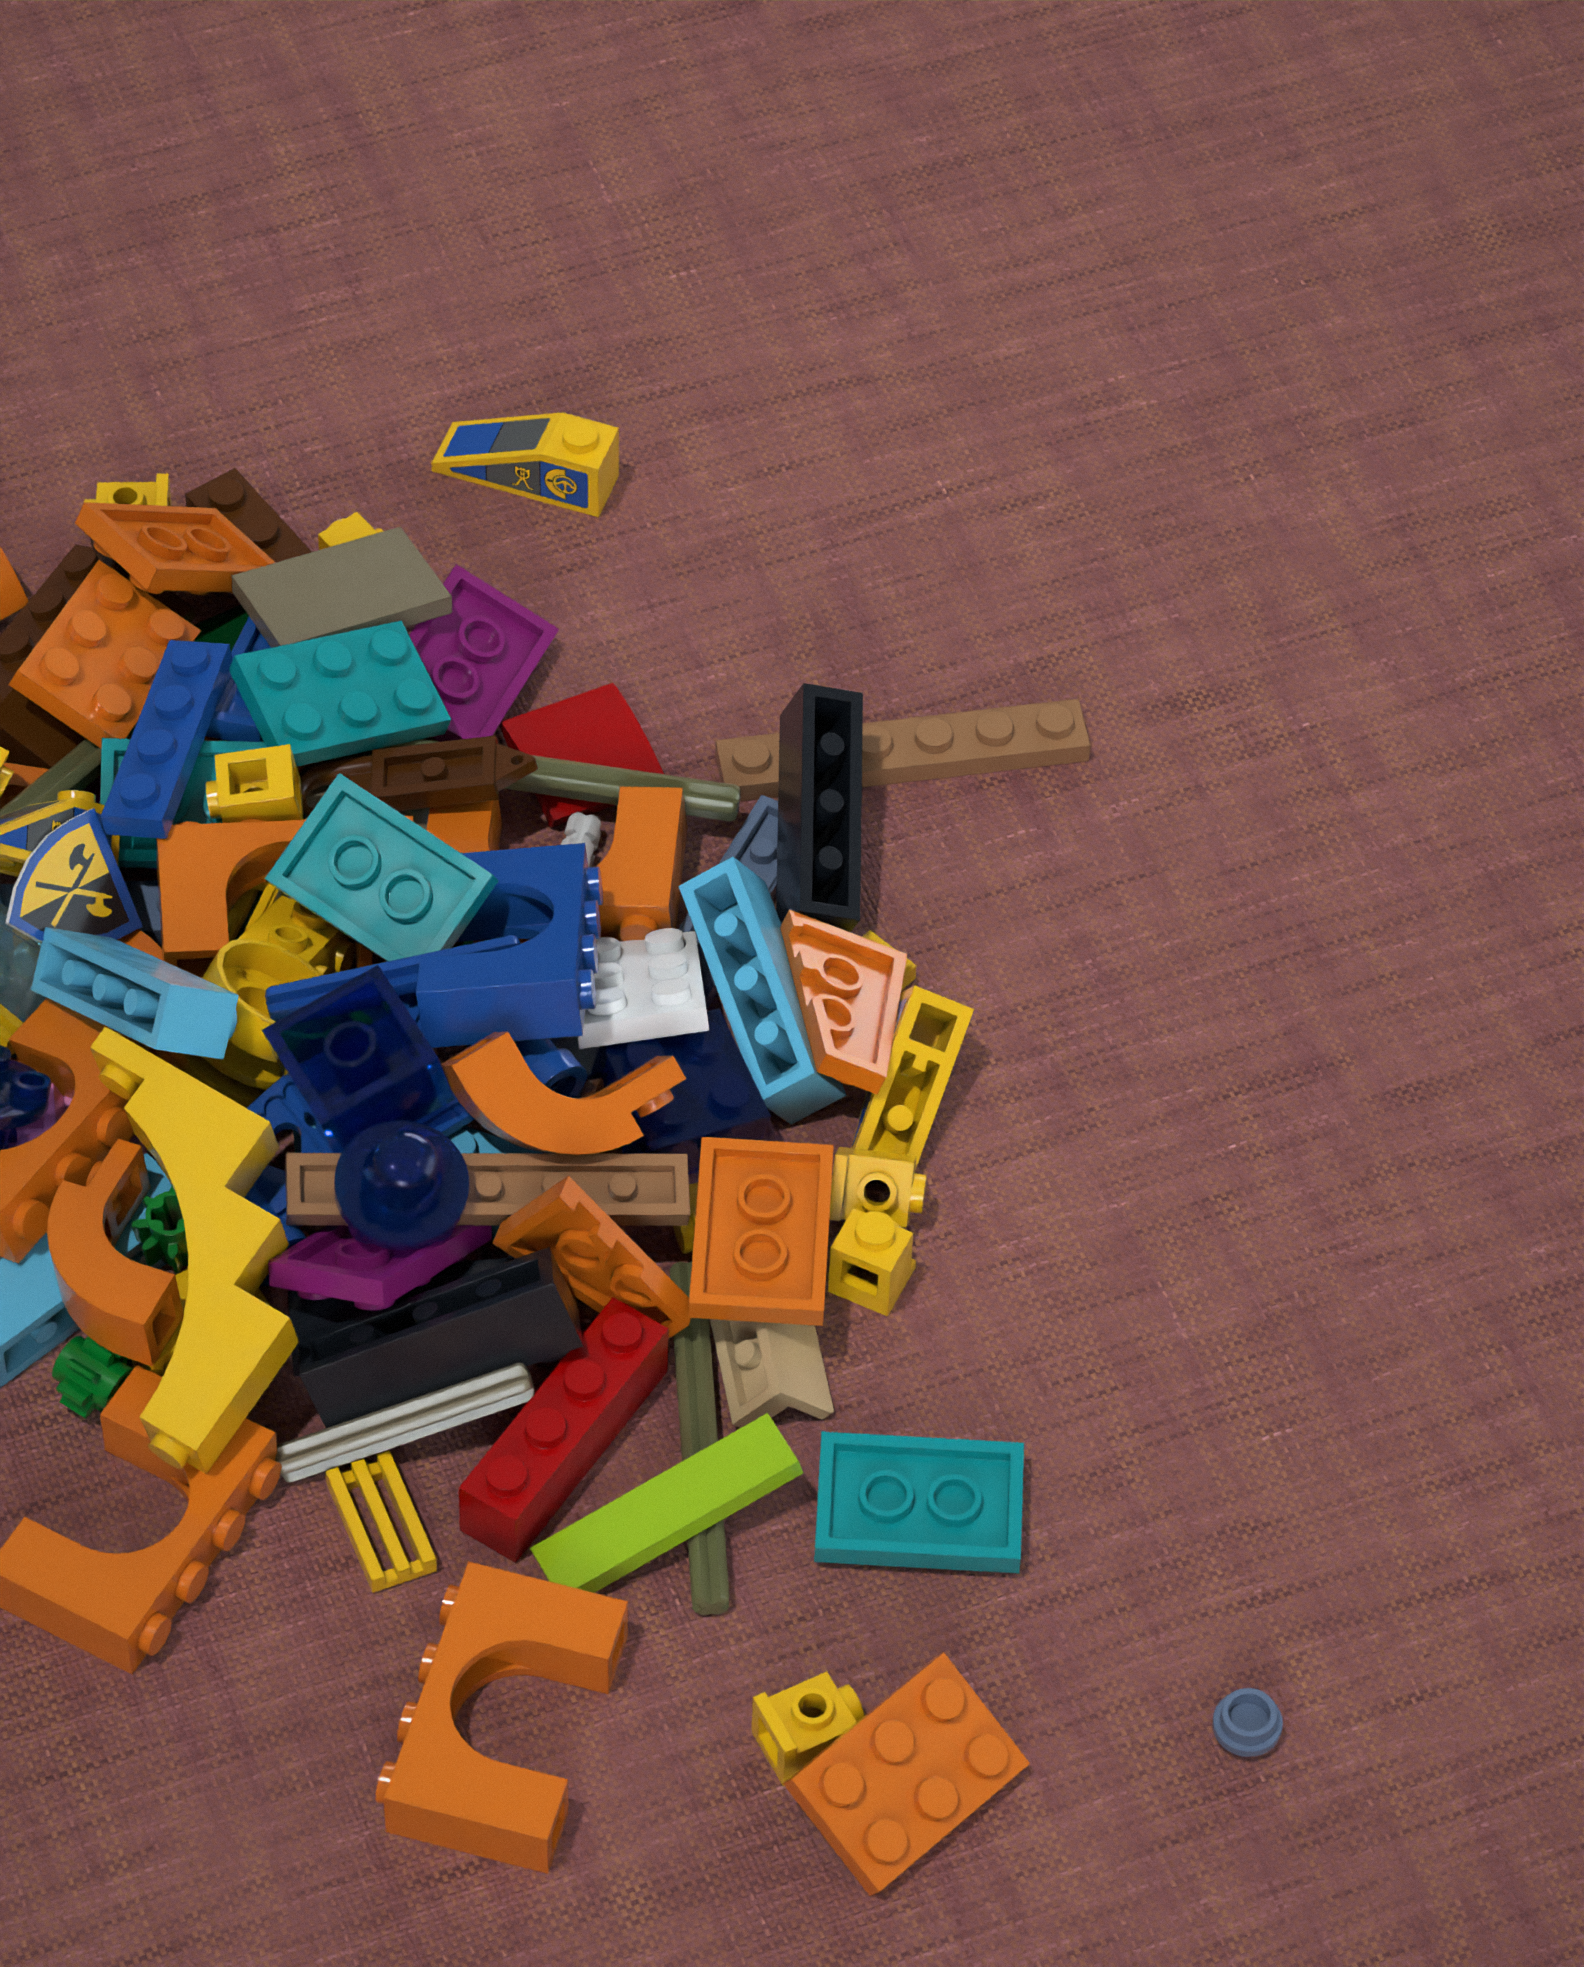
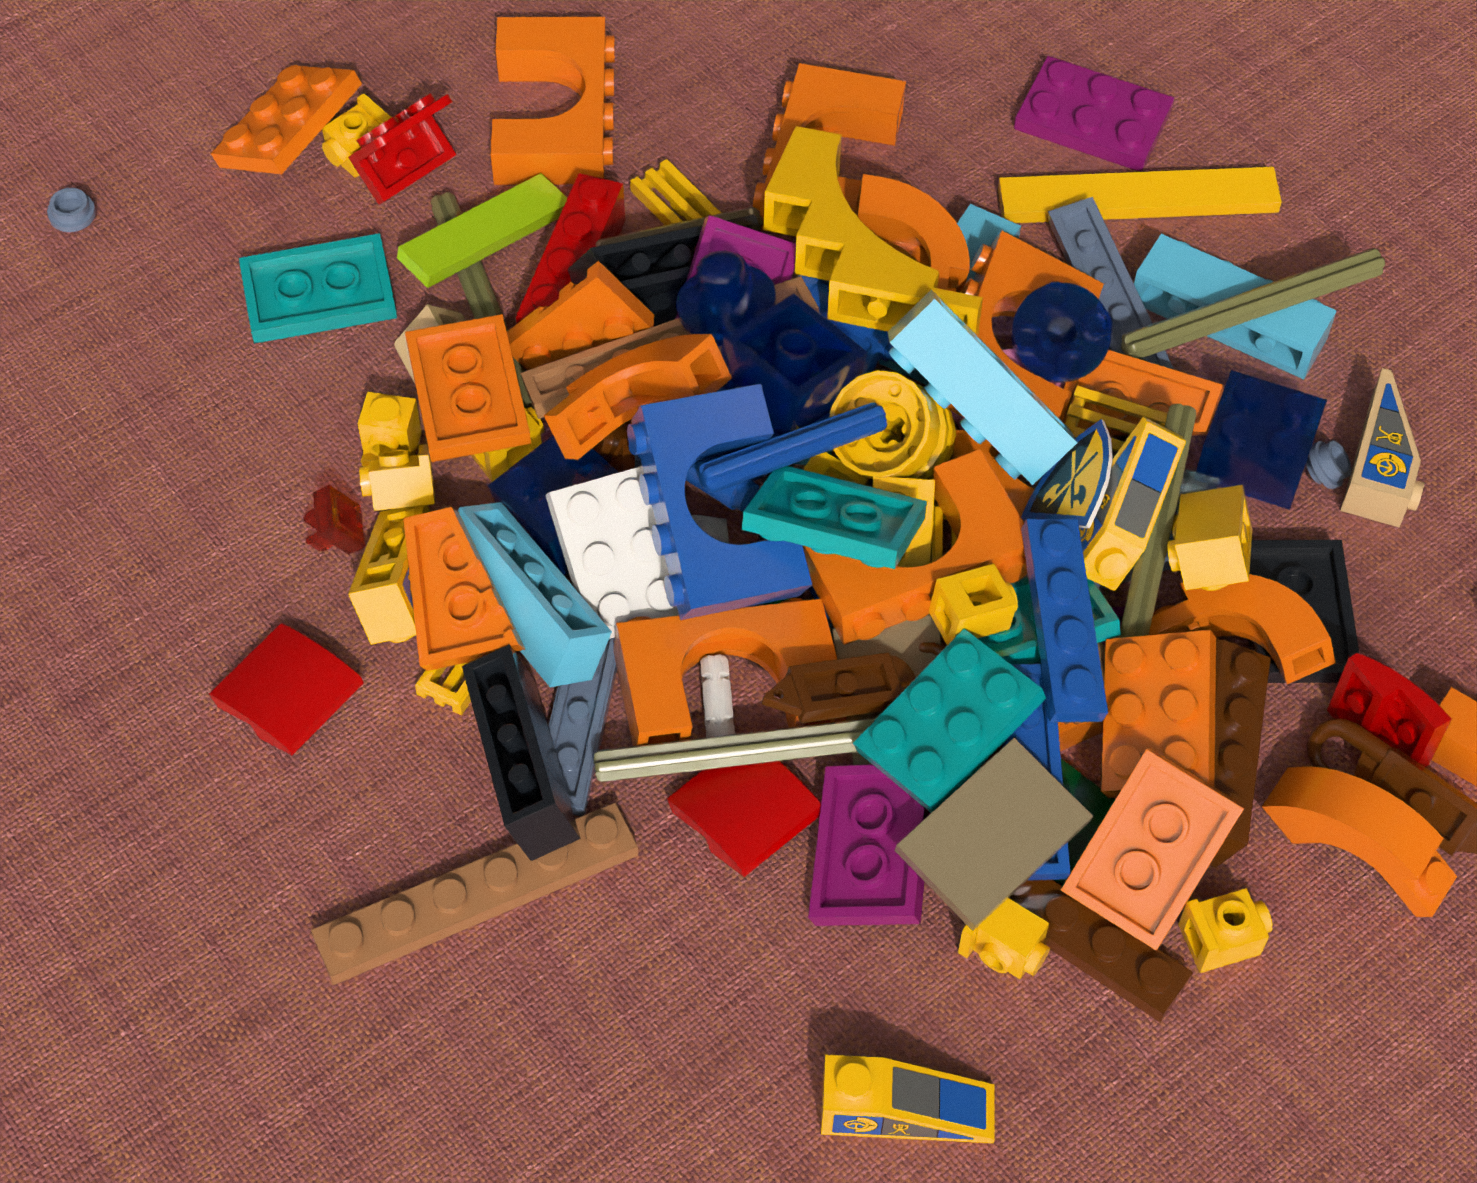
camera: 165 degrees right, 5 degrees up
(746, 1633) = (403, 149): none -> red bracket
(965, 1168) = (336, 521): none -> clear red tile
(1067, 997) = (286, 688): none -> red slope

